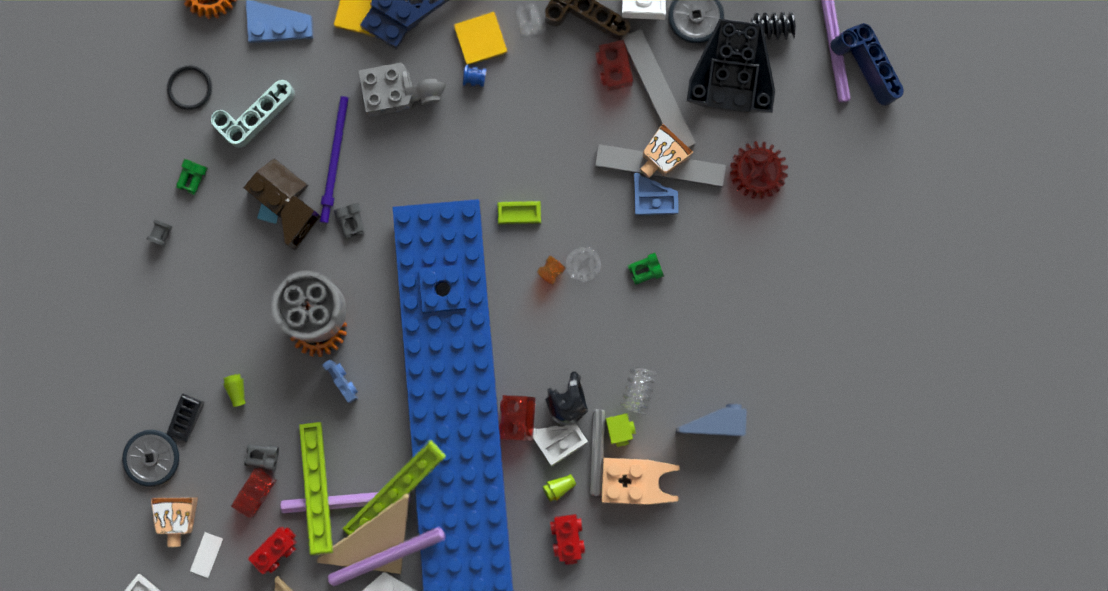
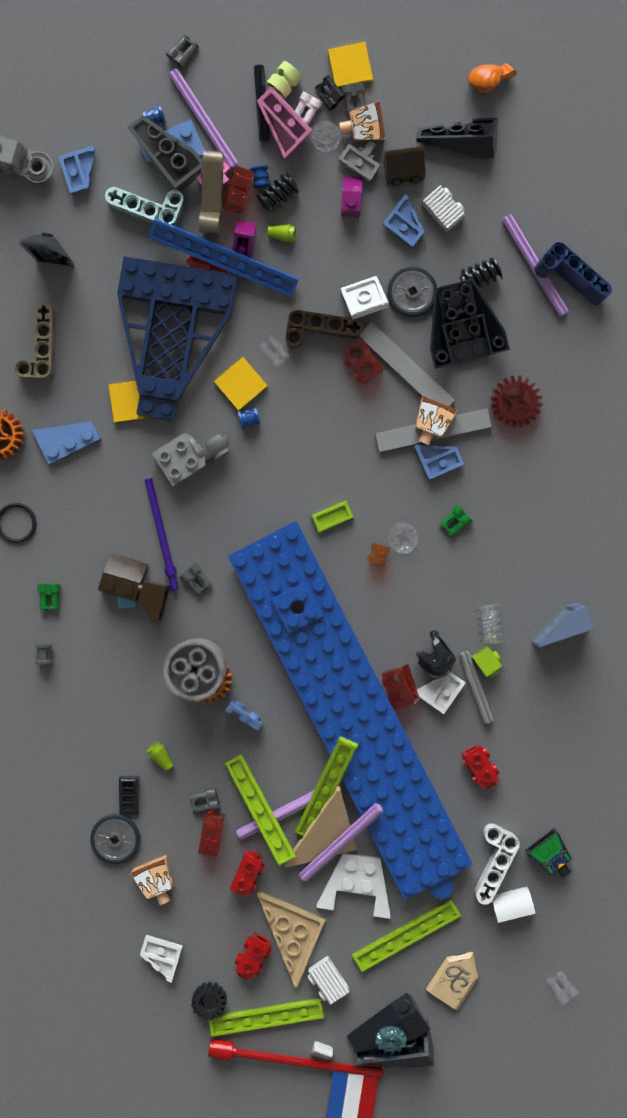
camera: 25 degrees left, 5 degrees up
(206, 555) = (193, 897): white sticker -> none
(254, 110) = (88, 523): light aqua beam -> none
(558, 487) = (456, 729): lime cone -> none
(643, 484) = (523, 696): light nougat brick -> none

